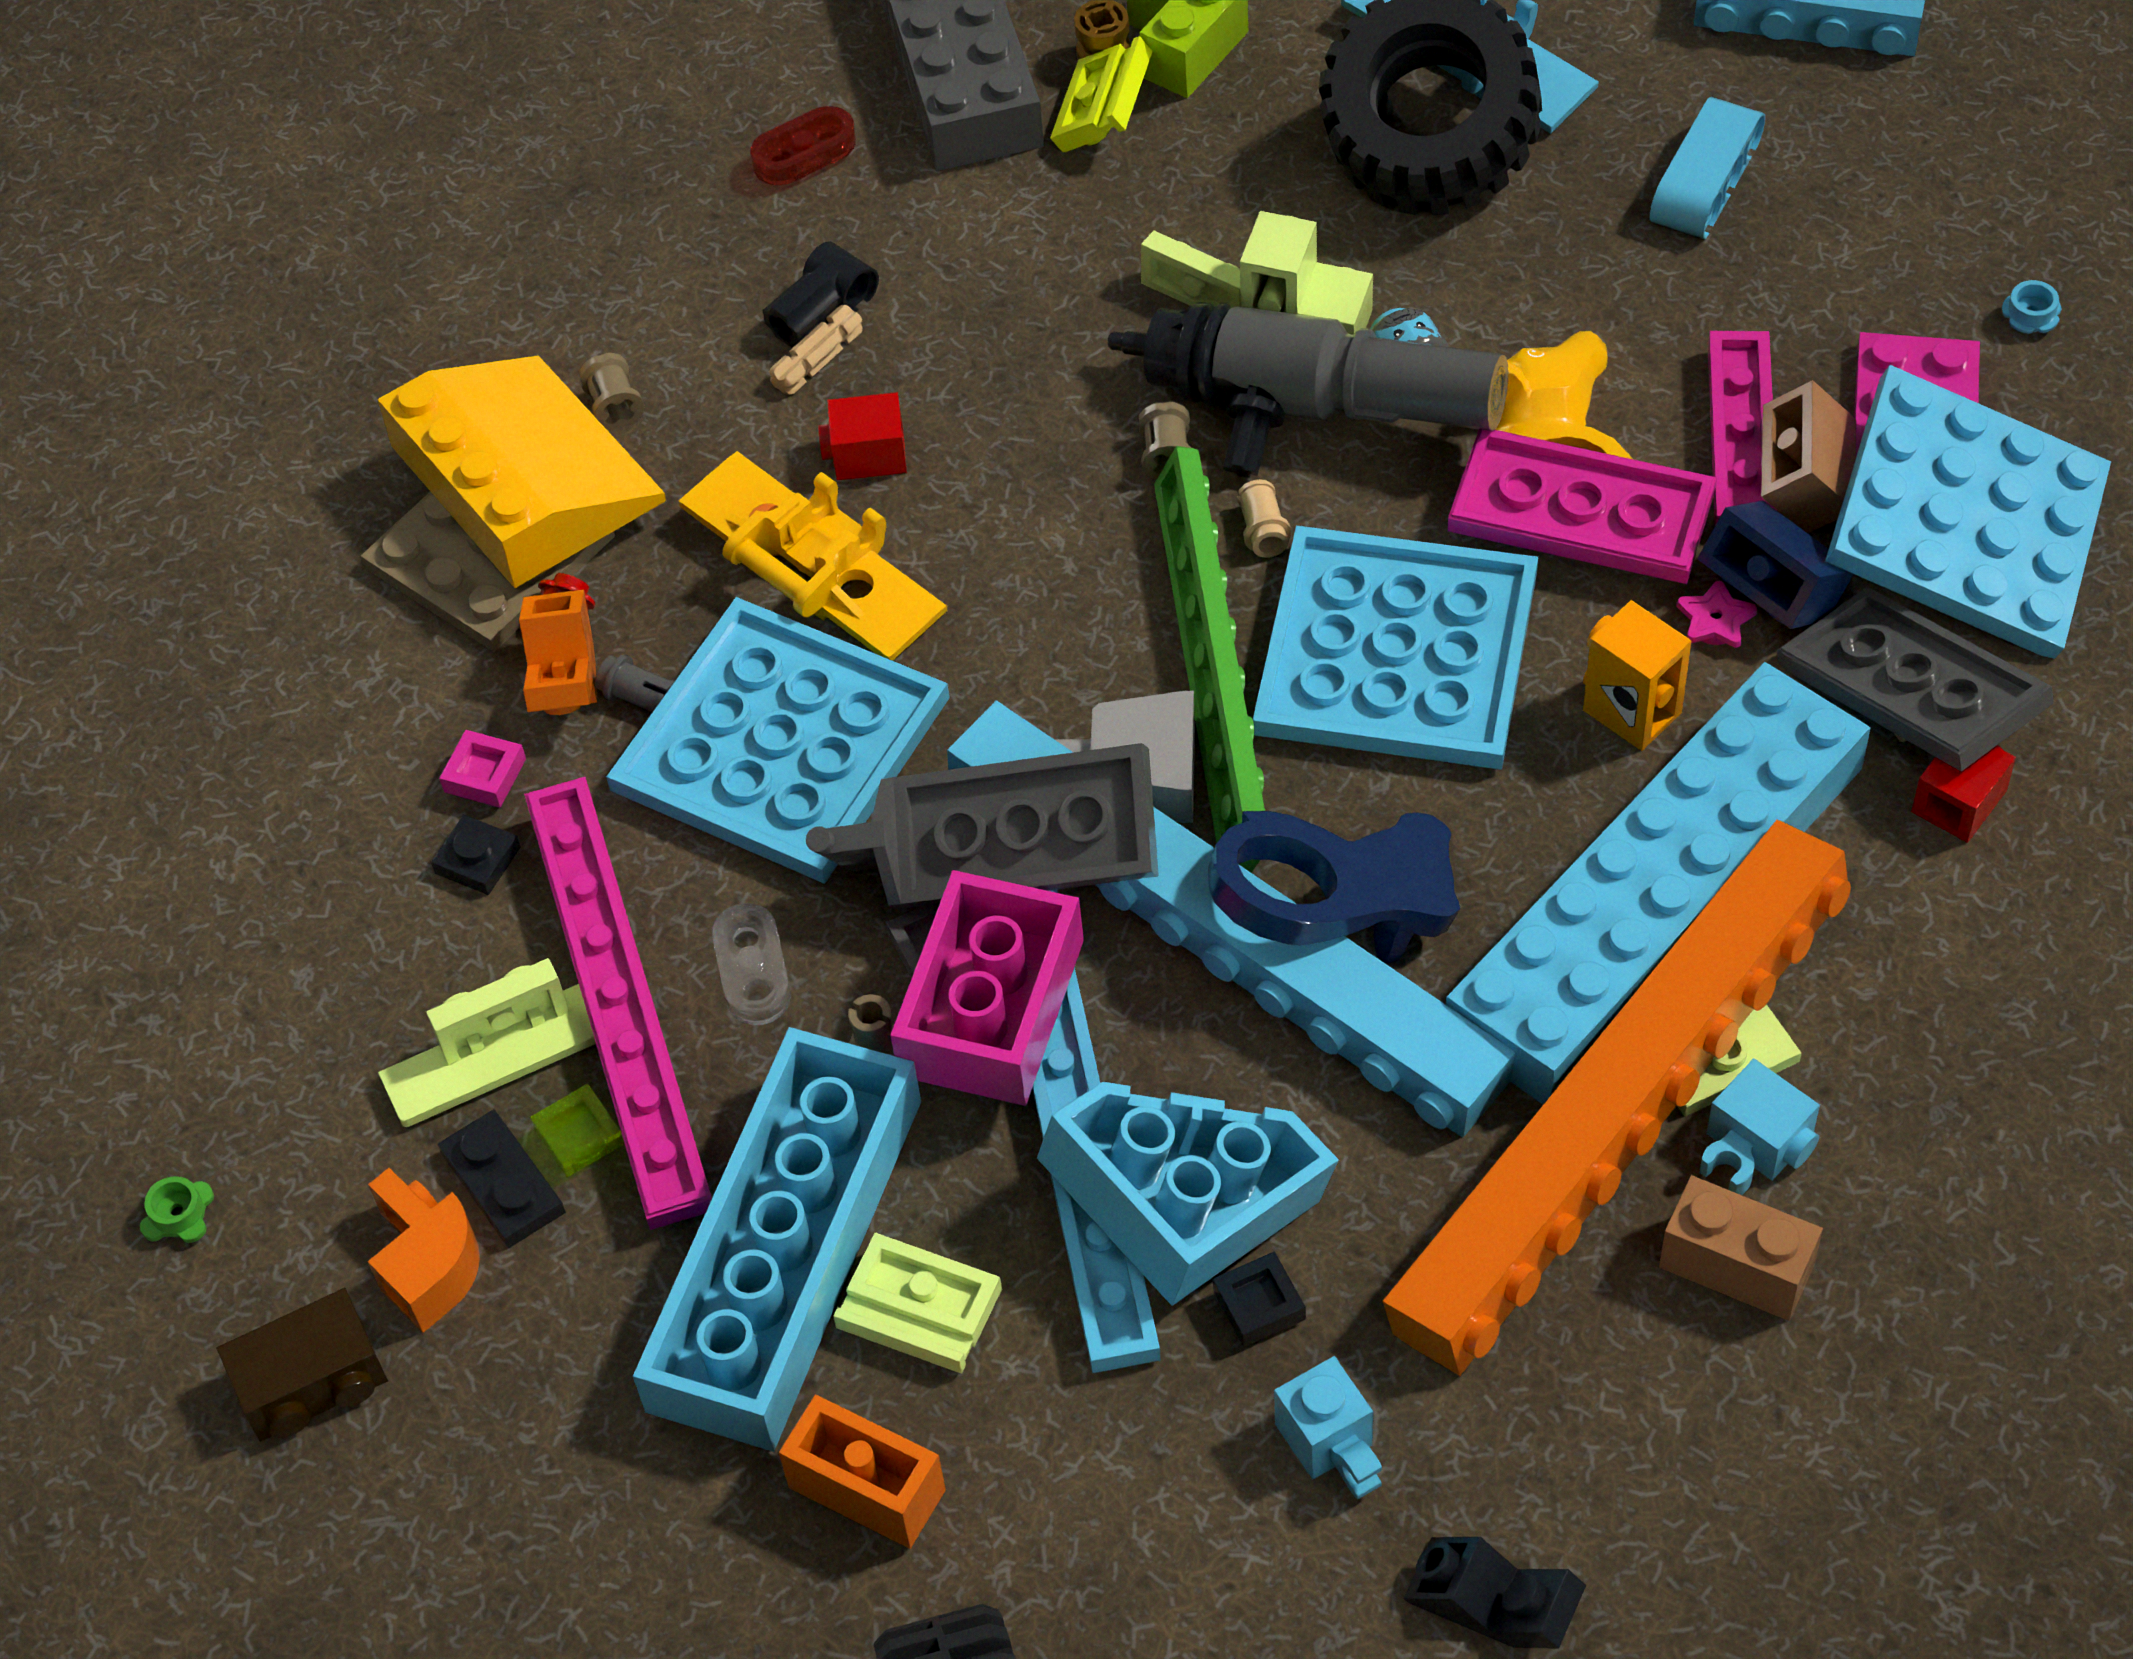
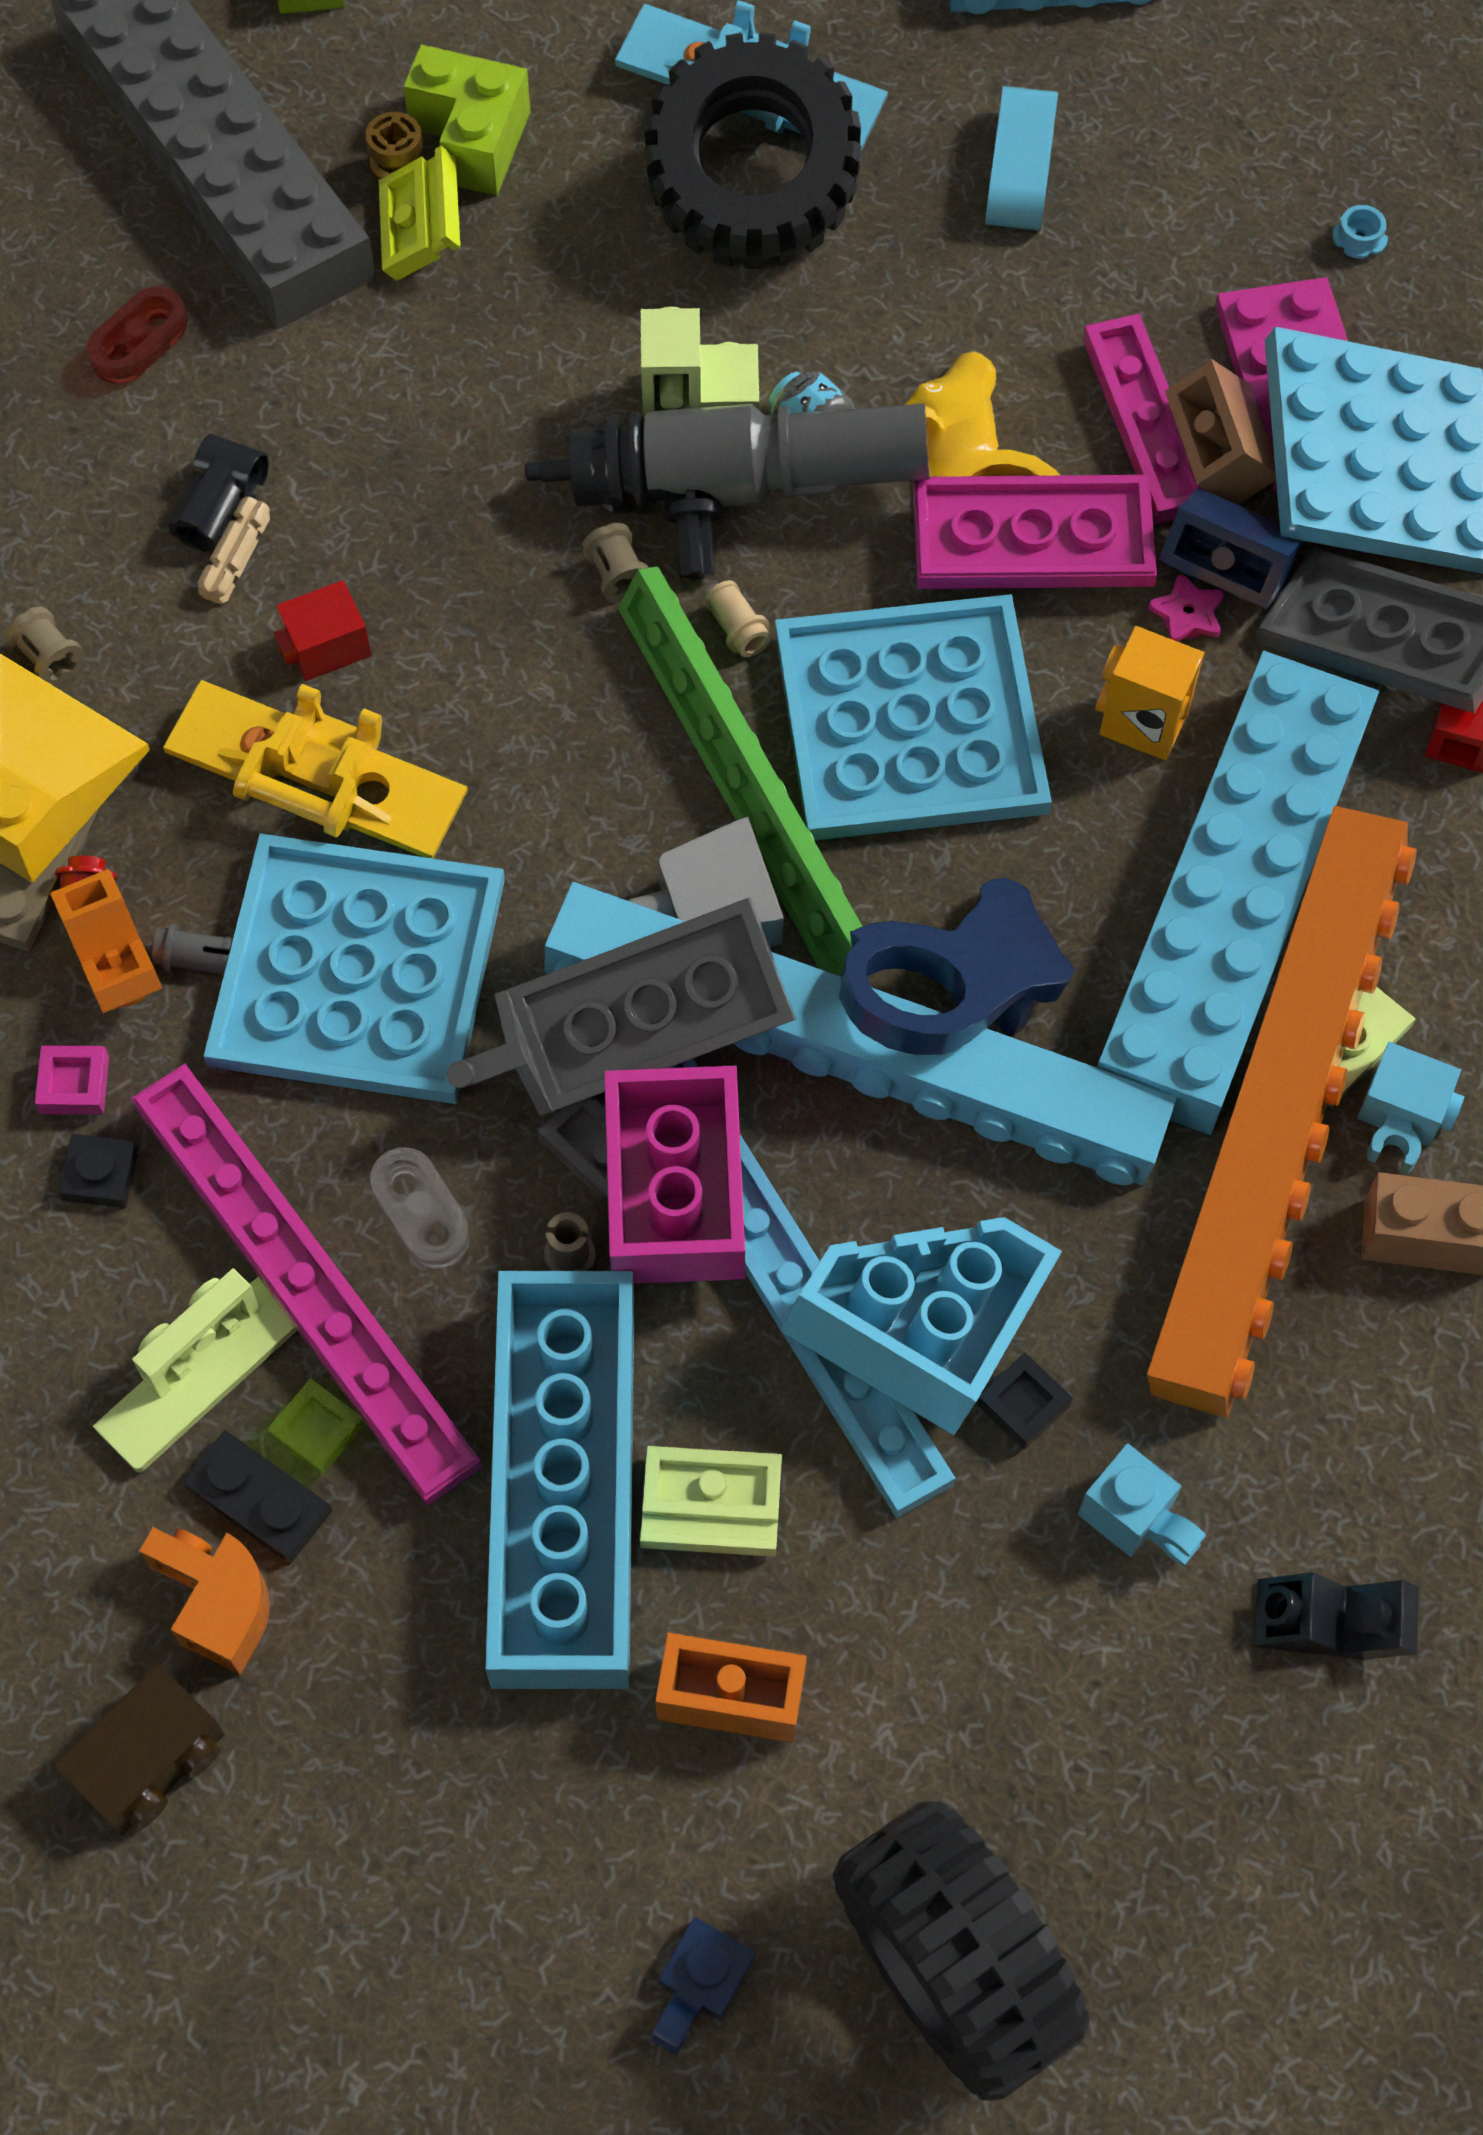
camera: 25 degrees left, 10 degrees up
(1188, 273) = (581, 385): yellowish green plate -> none

